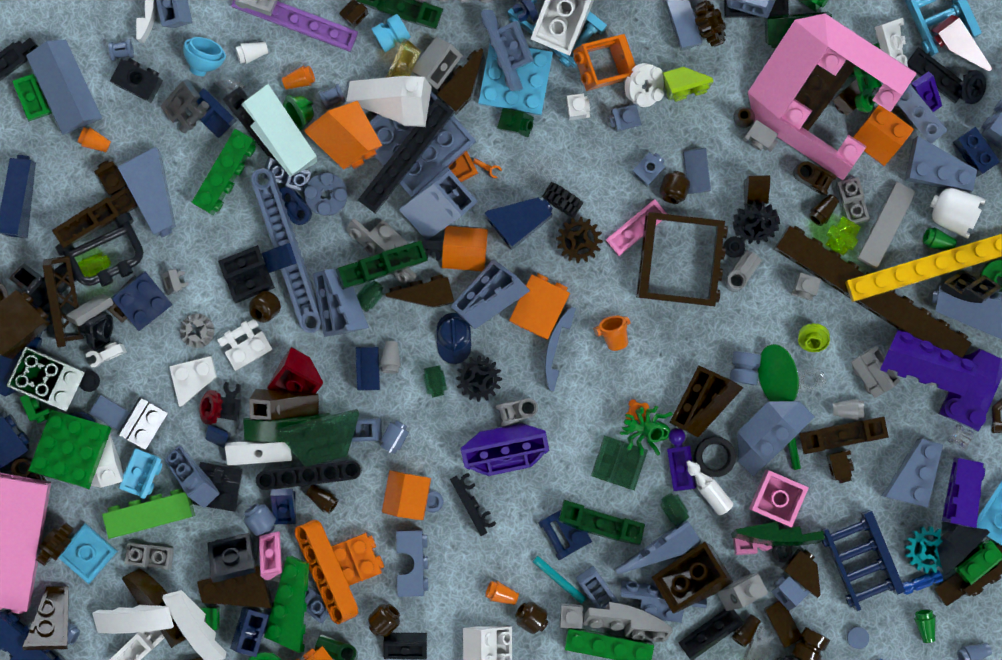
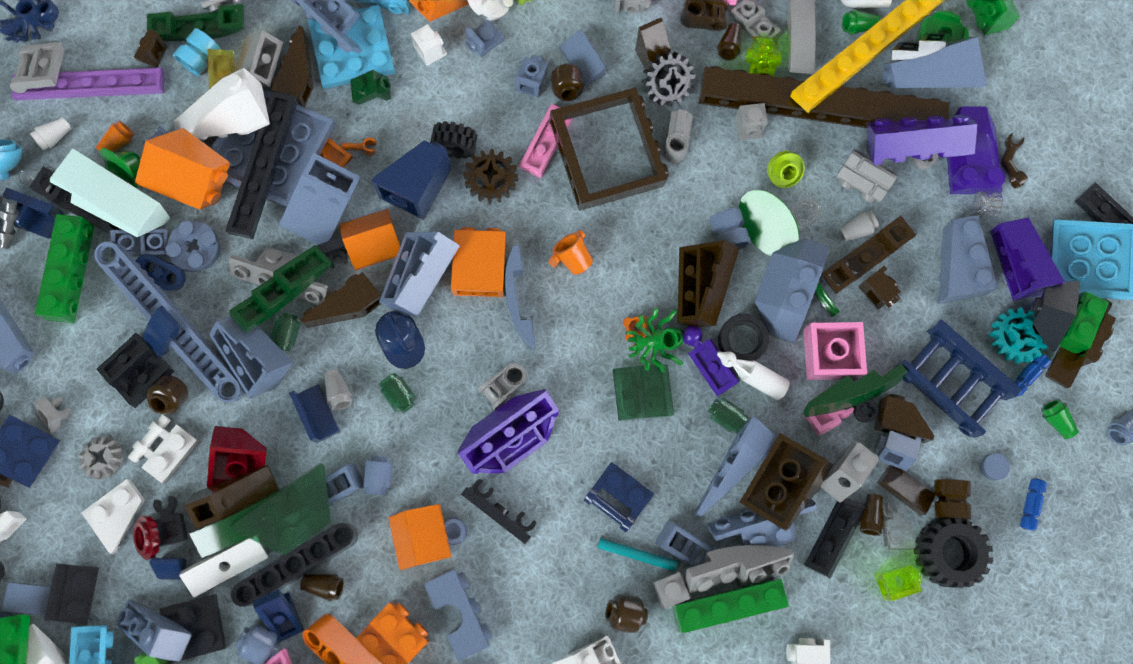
camera: 30 degrees left, 10 degrees down
(475, 369) = (454, 359): black gear -> none
(500, 593) = (578, 601): orange cone -> none
(601, 524) = (655, 469): dark green slope -> none
(734, 254) = (658, 122): black plate -> none

